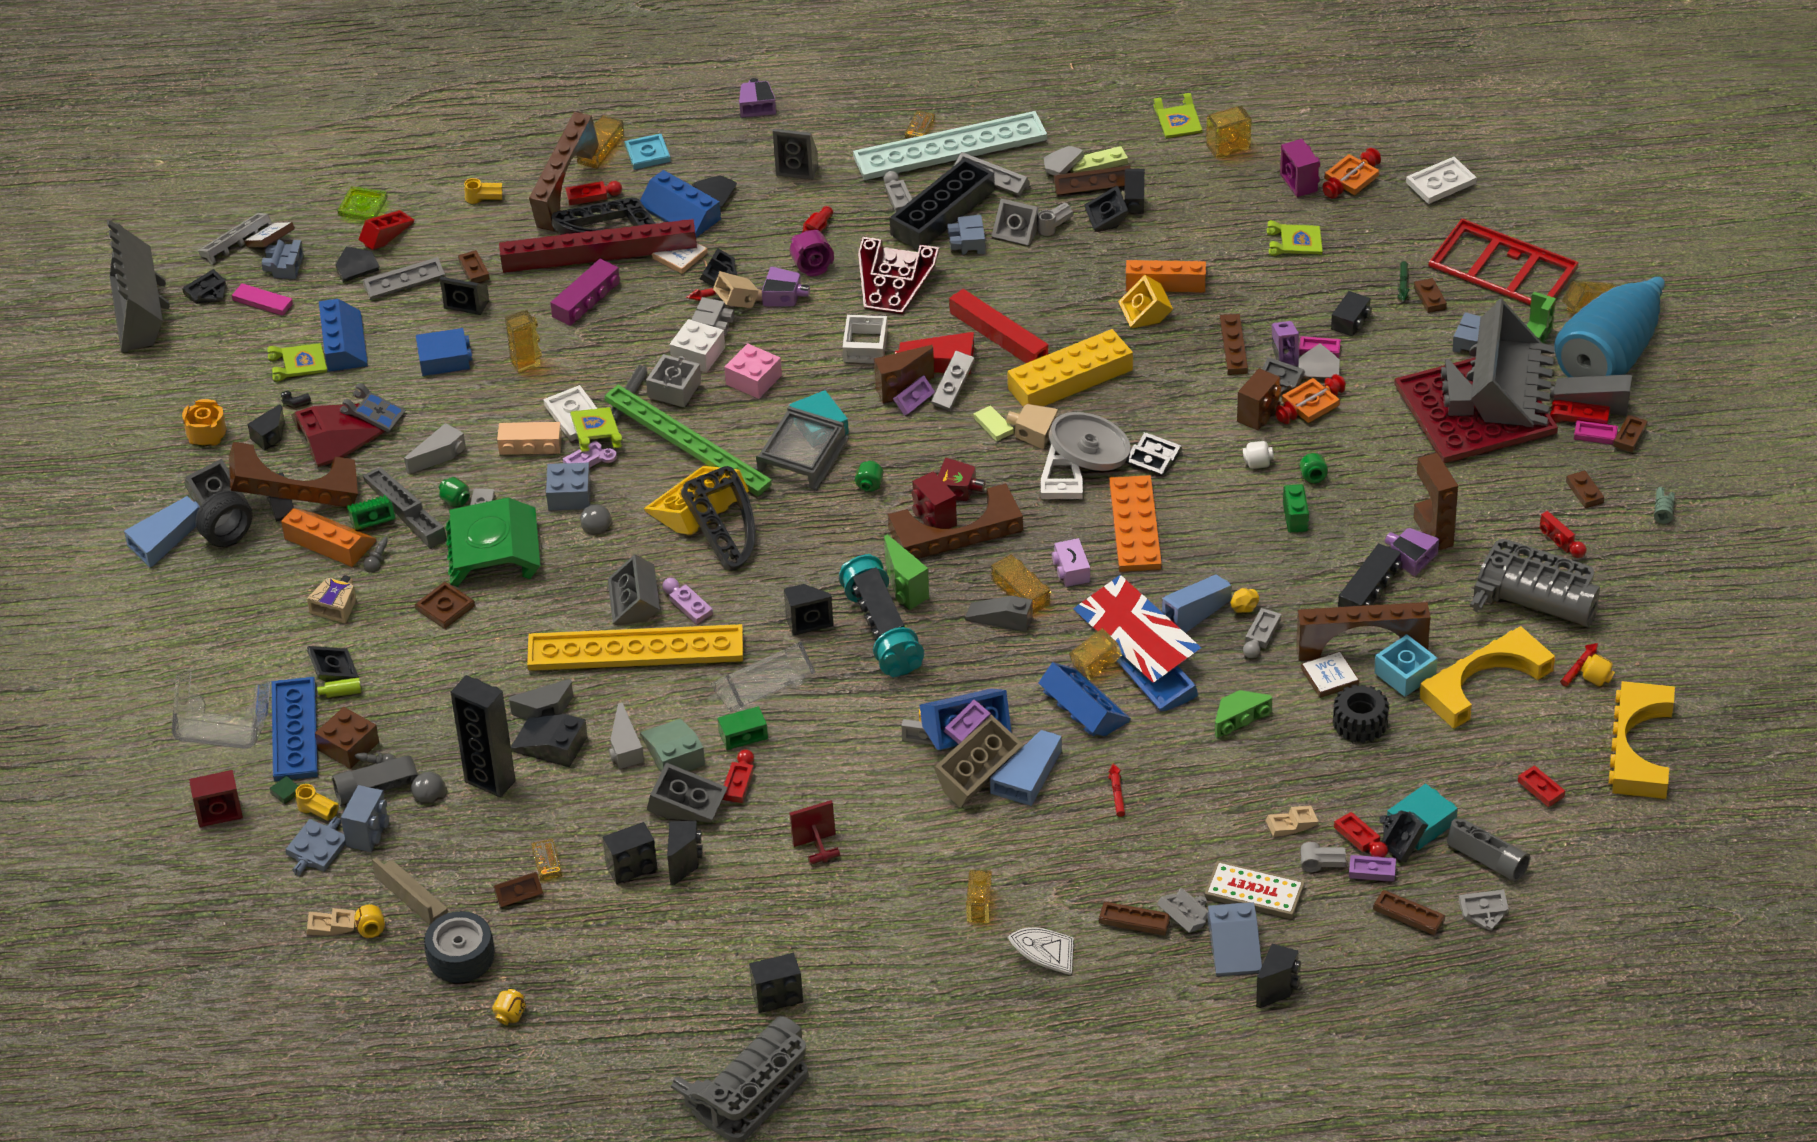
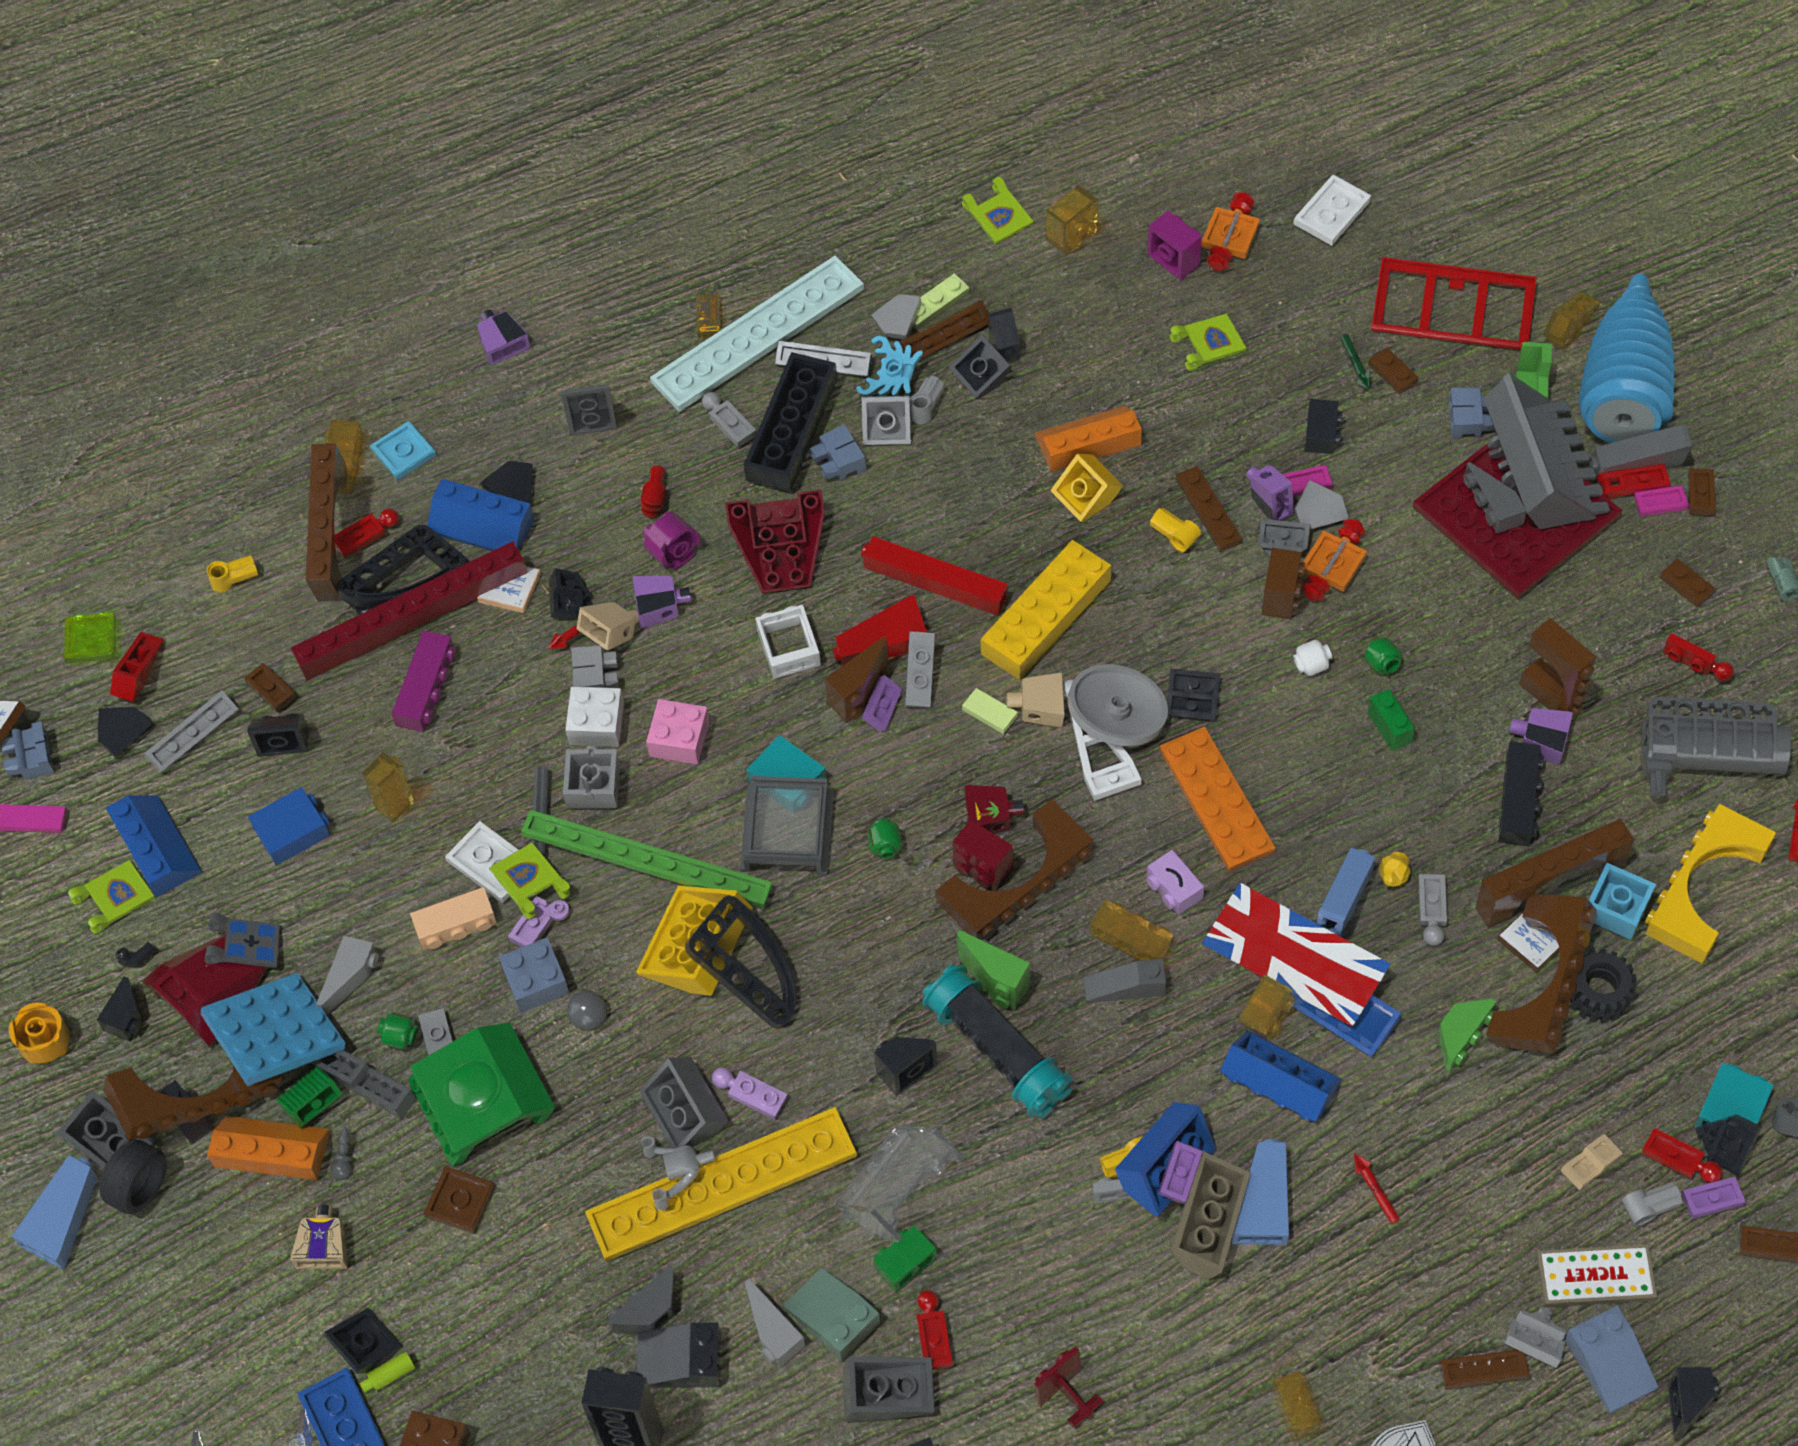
camera: 20 degrees left, 15 degrees up
(365, 462) = (272, 1029): none -> dark azure plate
(607, 623) = (678, 1163): none -> light grey piece
(1041, 192) = (895, 369): none -> medium azure animal
(1199, 349) = (1180, 533): none -> yellow piece
(1292, 718) = (1540, 1022): none -> reddish brown arch

